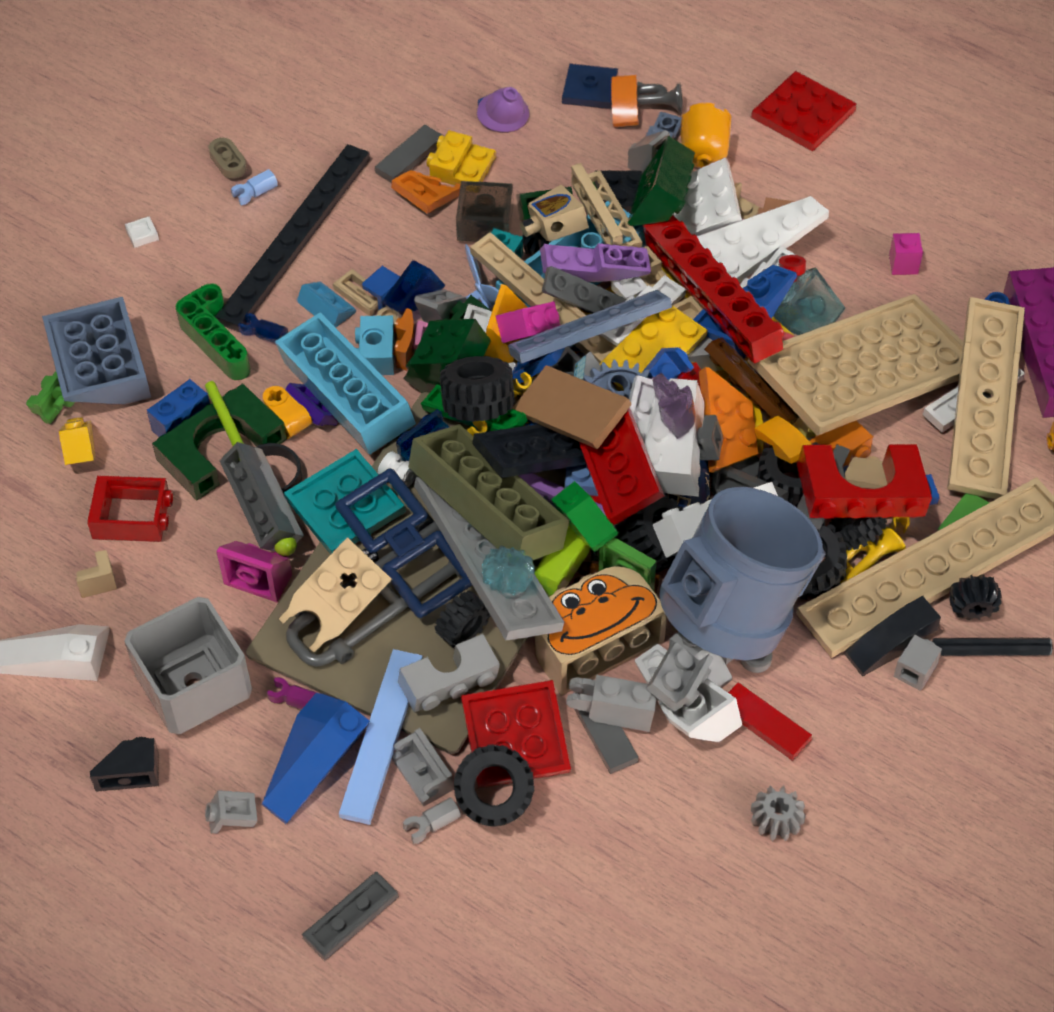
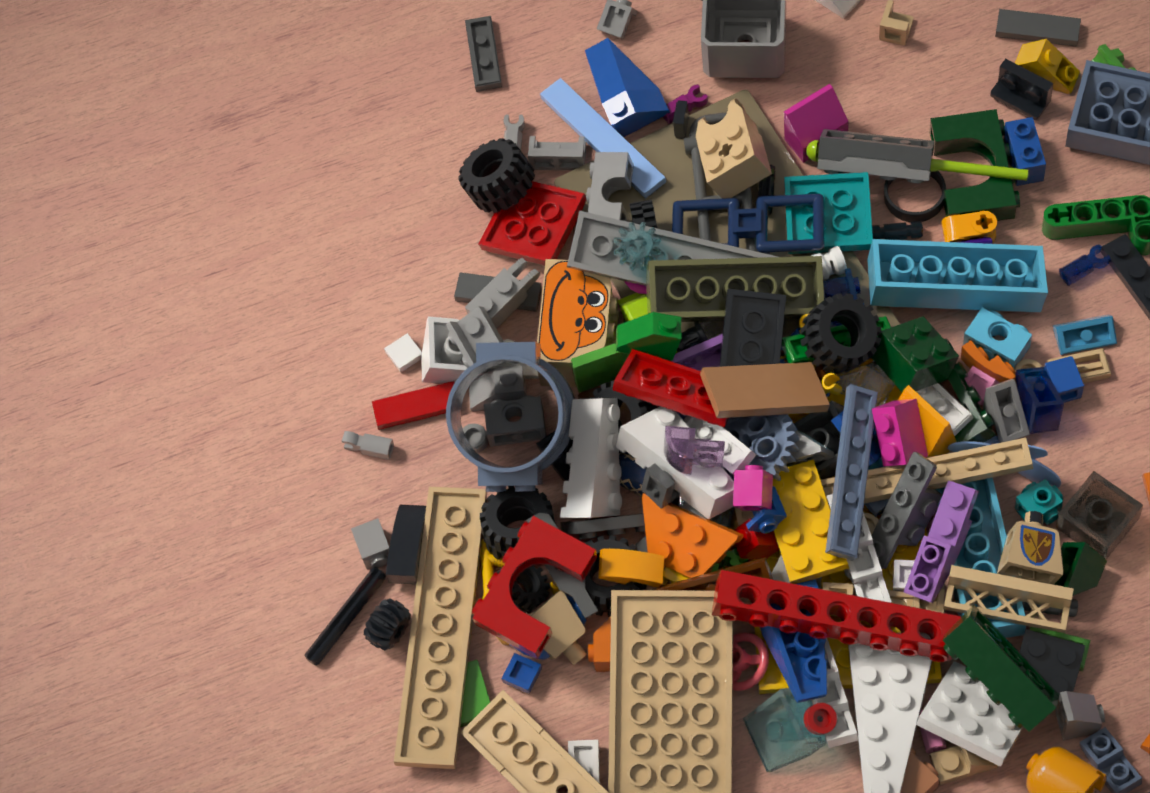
camera: 135 degrees right, 10 degrees up
(33, 474) = (1038, 27): none -> dark grey tile
(115, 444) = (1022, 89): none -> black bracket
(129, 488) = (958, 52): red window -> none
(315, 460) = (898, 231): none -> black axle
(321, 672) = (681, 119): none -> black tile
(668, 359) = (752, 489): none -> dark pink brick
(724, 765) = (403, 352): none -> white tile
(778, 824) = (328, 364): light grey gear -> none
(833, 730) = (369, 444): none -> light grey bar

